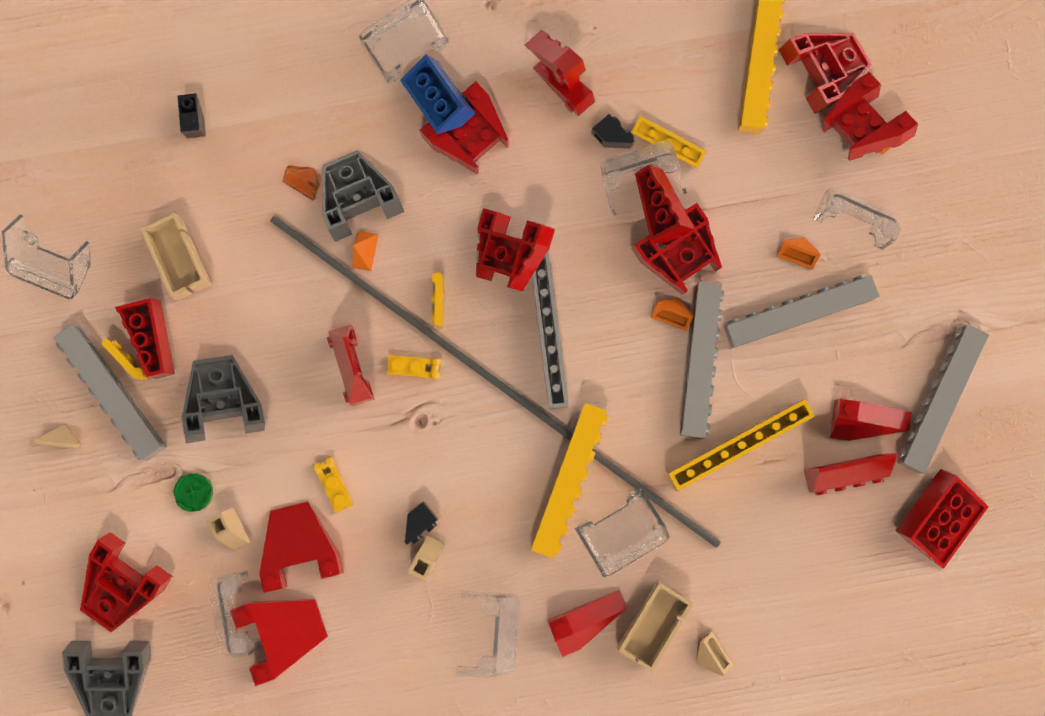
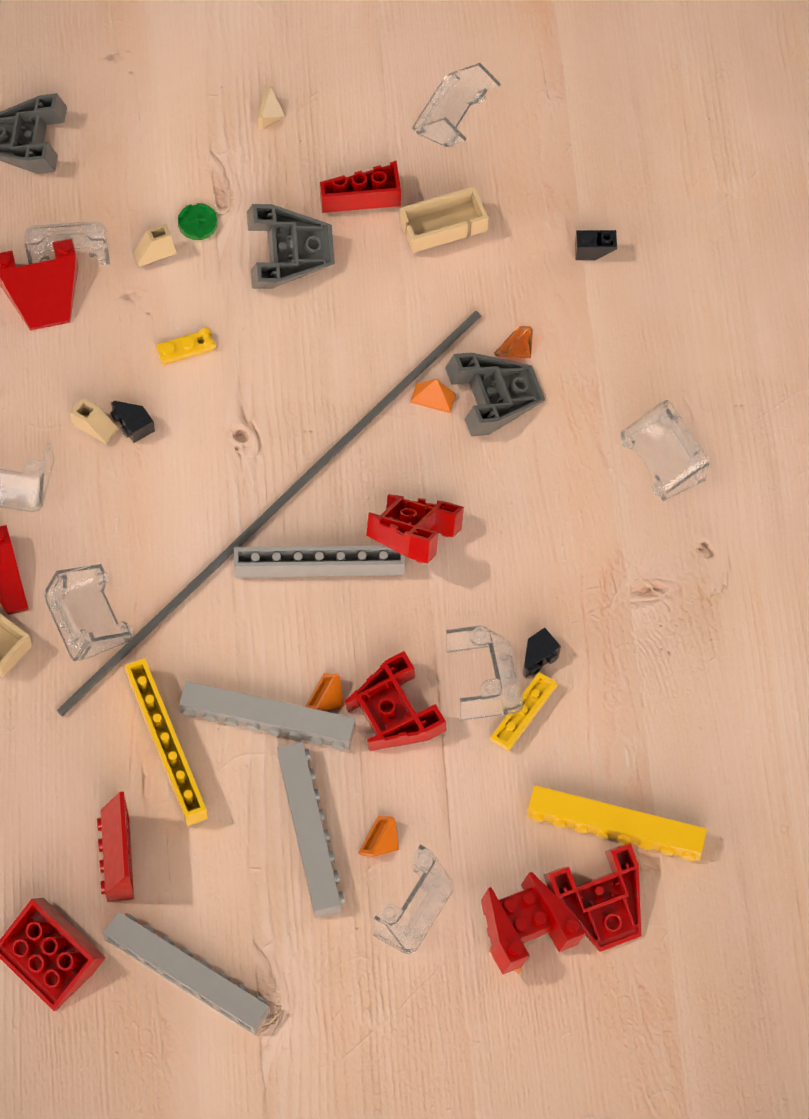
camera: 90 degrees right, 20 degrees down
(110, 392) = (310, 154): light grey brick -> none
(115, 589) = (112, 145): red wedge -> none
(126, 360) = (345, 166): yellow plate -> none
(295, 538) = (133, 303): red wedge -> none
(357, 387) = (308, 357): red wedge -> none
(413, 366) = (300, 431): yellow plate -> none
(436, 95) = (595, 474): blue slope -> none
(437, 298) = (369, 460): yellow plate -> none
(475, 137) = (550, 510): red wedge -> none
(561, 71) = (615, 591): red wedge -> none
(568, 481) = (154, 565): yellow brick -> none
(661, 206) = (443, 683): red wedge -> none
(863, 420) = (174, 884): red wedge -> none

